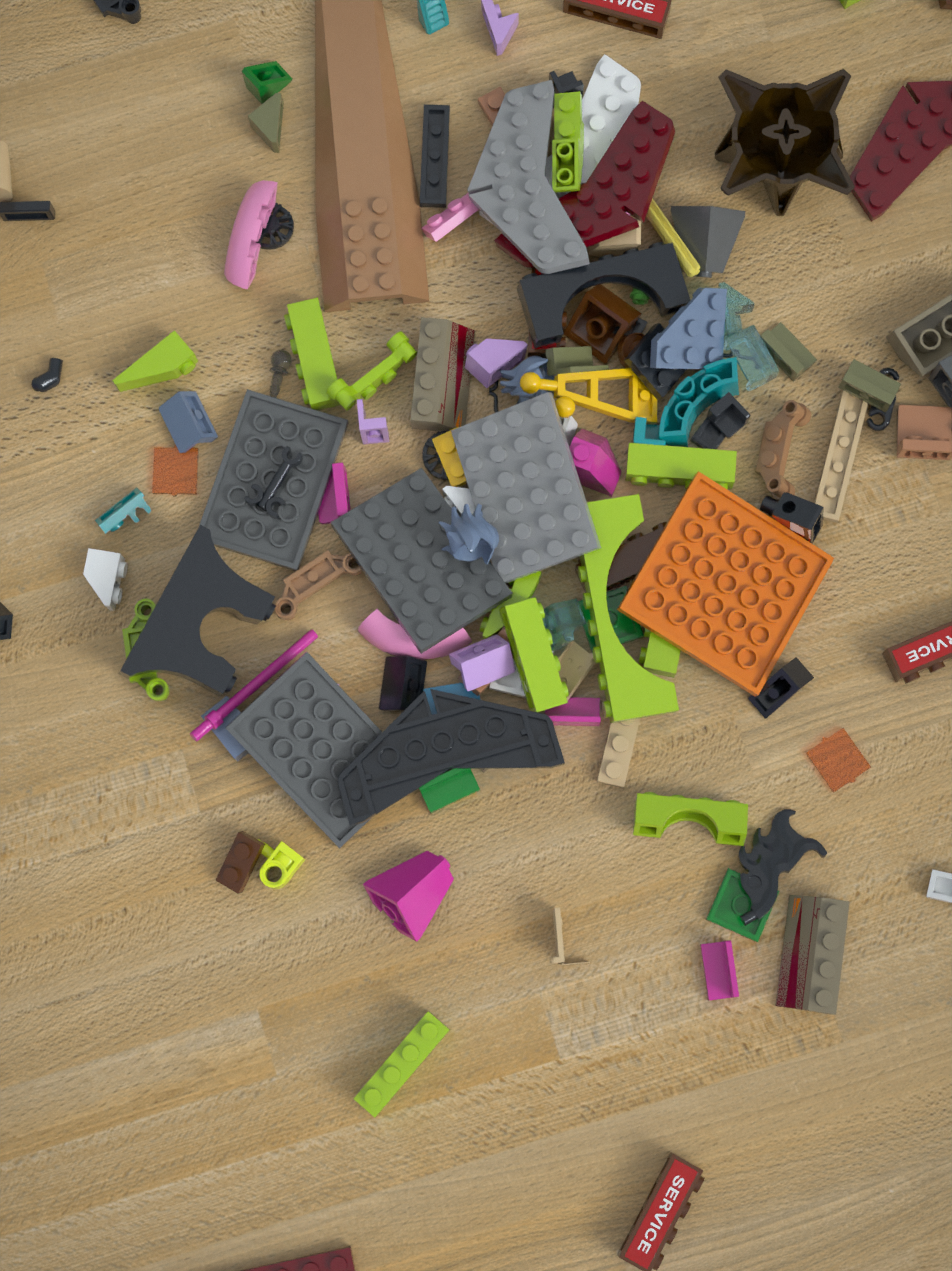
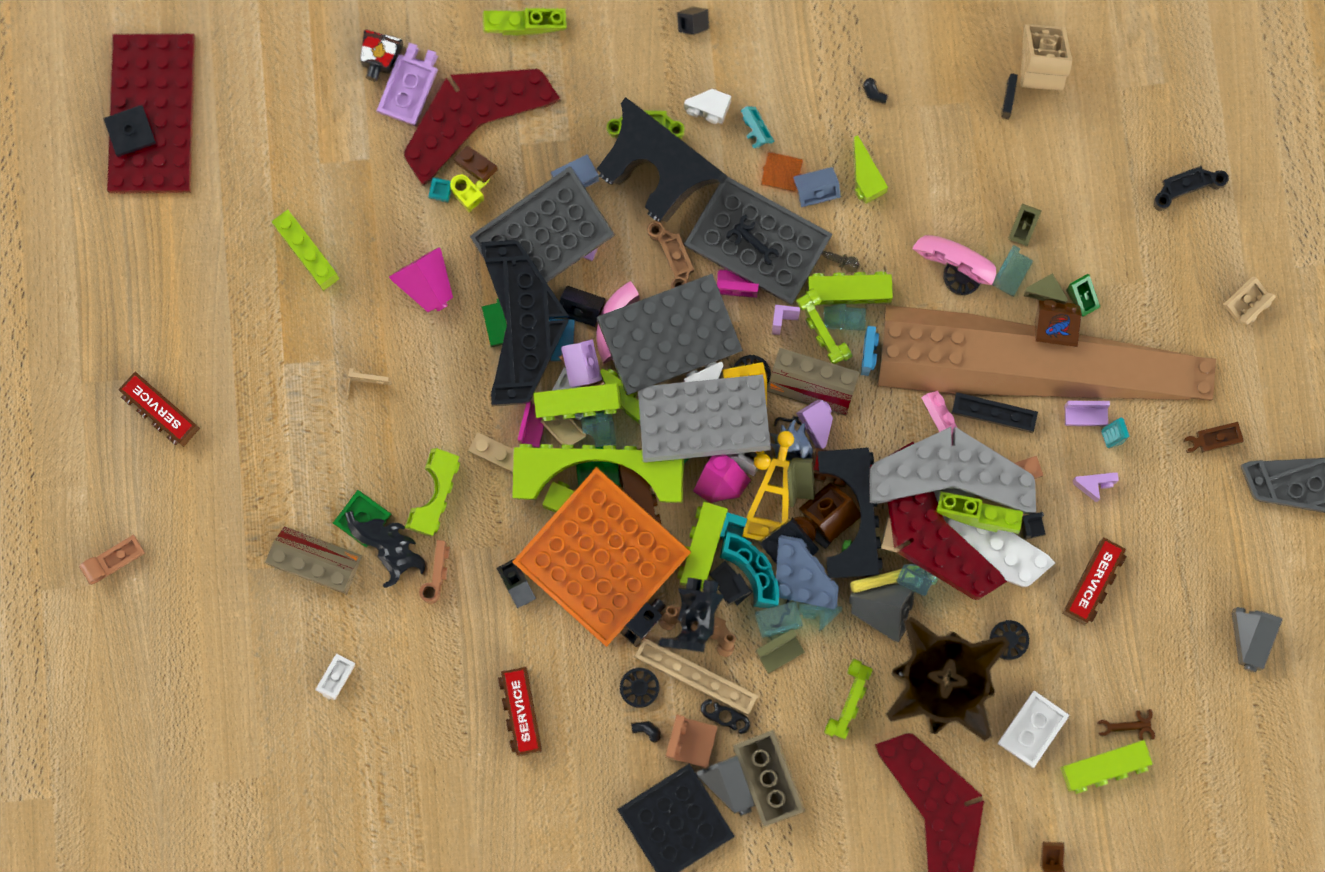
camera: 100 degrees right, 0 degrees up
(31, 840) = (524, 22): none -> lime slope
(109, 1027) = (379, 53): none -> torso
(148, 978) = (408, 86): none -> lavender tile
(174, 901) = (458, 114): none -> dark red wing
(189, 163) = (1024, 224): none -> olive slope
(215, 718) = (581, 161): dark pink bar -> none
(250, 168) = (1012, 271): none -> clear light blue panel
(282, 903) = (440, 190): none -> teal tile
(310, 98) = (1057, 323): none -> reddish brown slope
(351, 355) = (844, 317): none -> clear light blue slope
(391, 313) = (870, 344): none -> dark azure plate
(414, 52) = (1086, 413): none -> lavender panel
(470, 535) = (675, 368): sand blue hair -> none
(667, 200) = (916, 579): none -> clear light blue slope
(707, 91) = (1012, 638): none -> black wheel
(719, 970) = (319, 490): dark pink panel -> none
(766, 441) = (698, 607): none -> black hips
(790, 787) = (439, 572): none -> nougat plate
(809, 42) = (1033, 729): none -> white plate
(830, 250) = (857, 691): none -> lime plate
(838, 760) = (453, 615): clear orange piece -> none
(869, 385) = (735, 705): olive panel -> none
(873, 509) = (639, 687): none -> black wheel
(876, 1226) = (111, 560): none -> nougat plate
(921, 486) = (648, 728): none -> black arm

